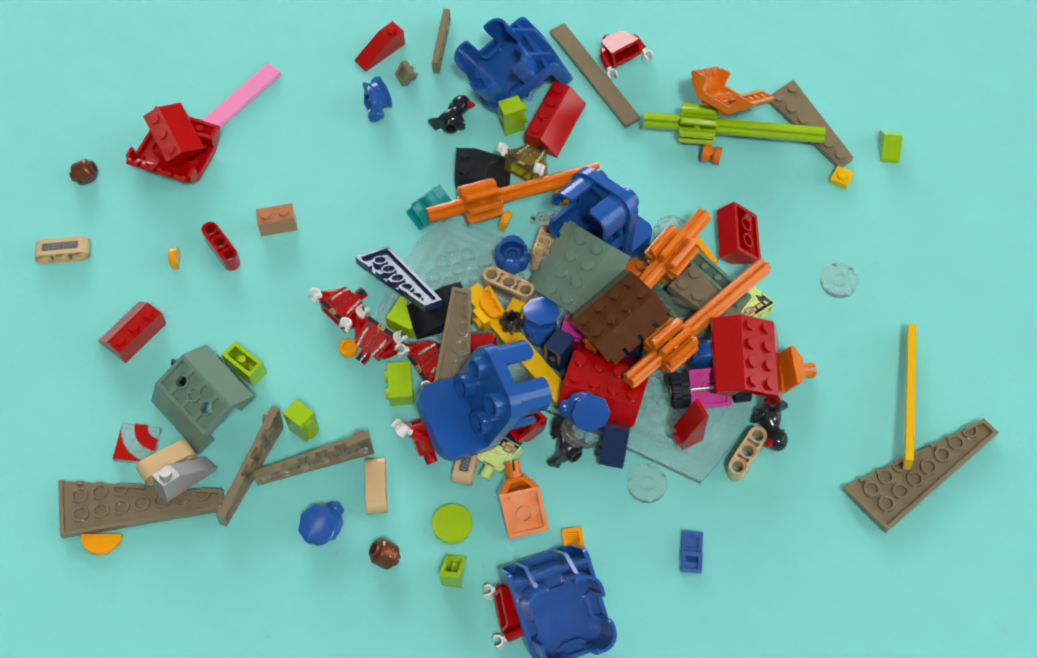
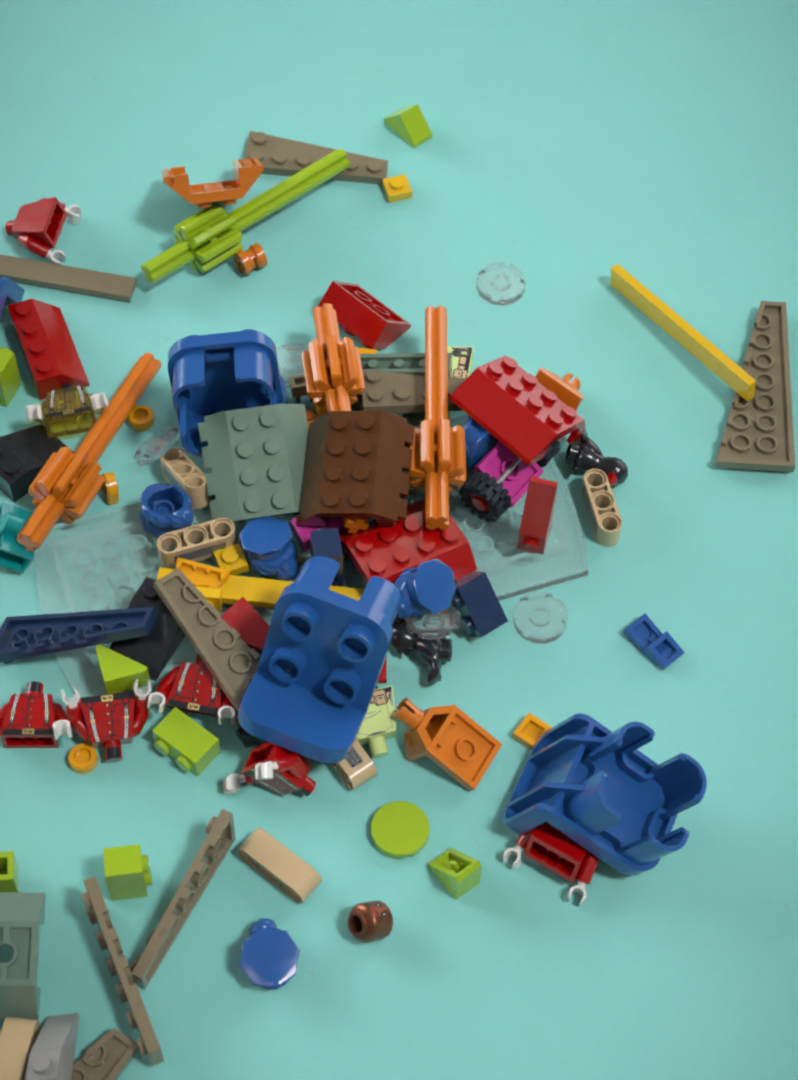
camera: 50 degrees left, 5 degrees down
(511, 317) = (245, 572): black gear -> none

